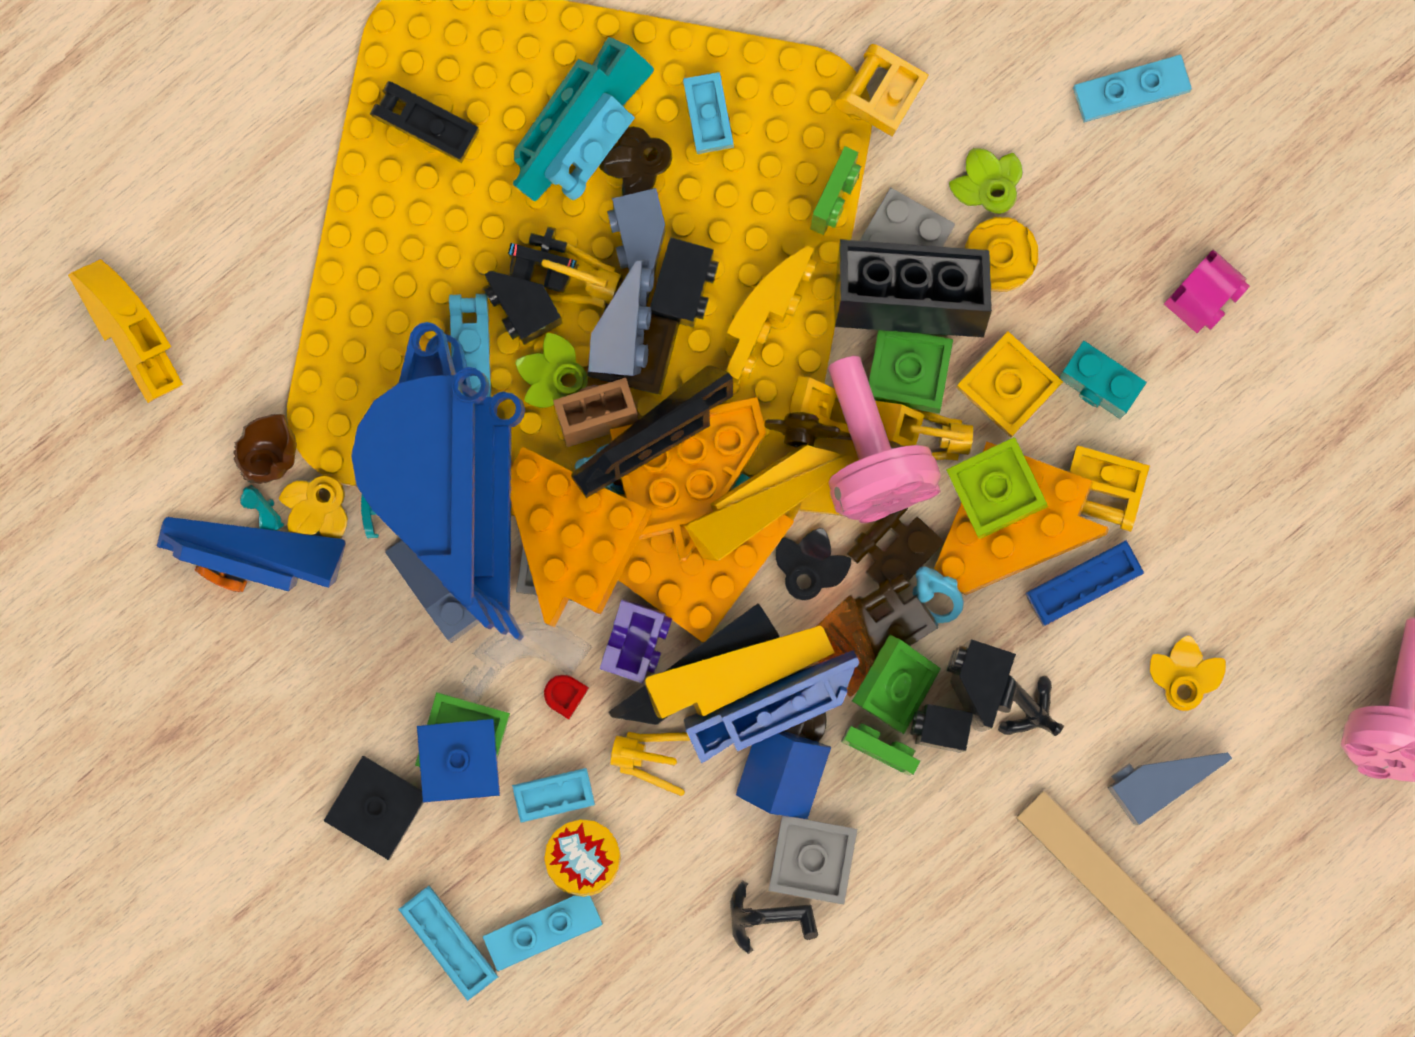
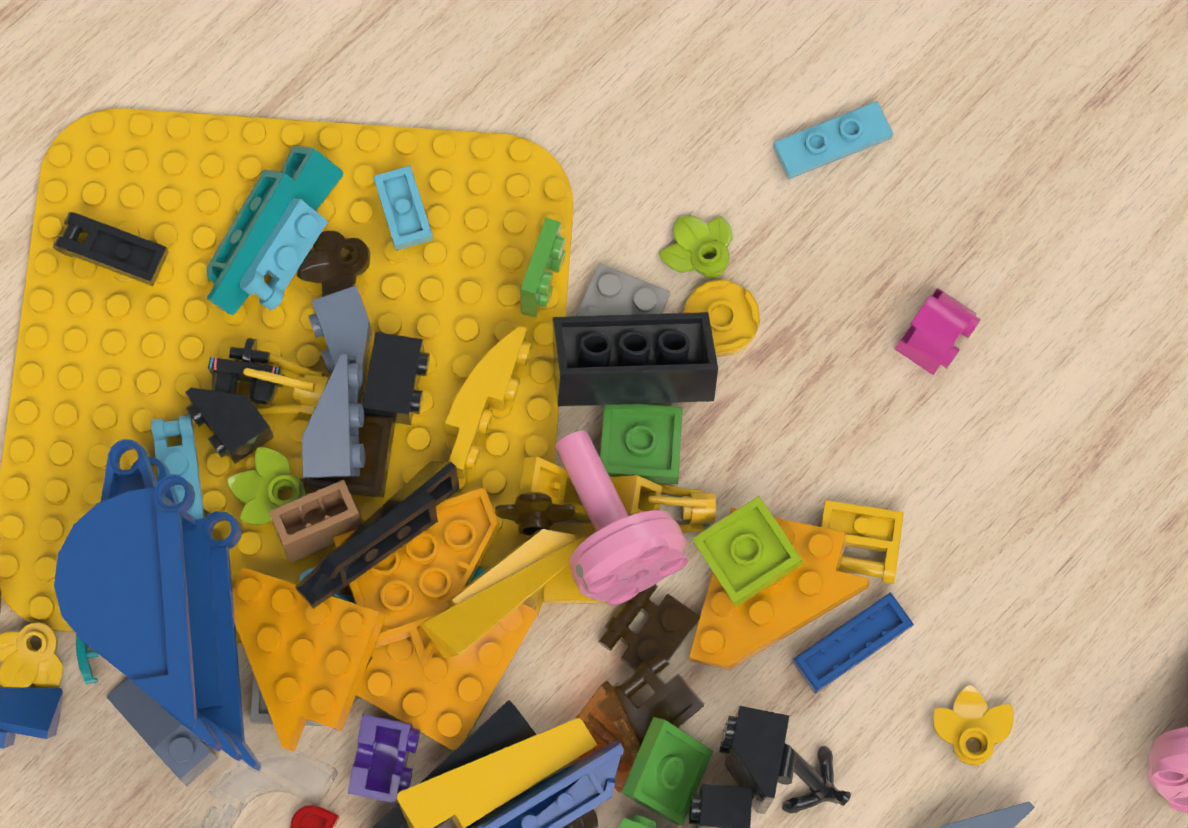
camera: 10 degrees left, 10 degrees down
(811, 559) = (562, 652): black plate -> none
(893, 95) = (590, 172): yellow plate -> none
(930, 582) = (691, 658): medium azure piece -> none
(1009, 384) = (746, 446): yellow plate -> none
(1102, 380) = (841, 430): teal brick -> none

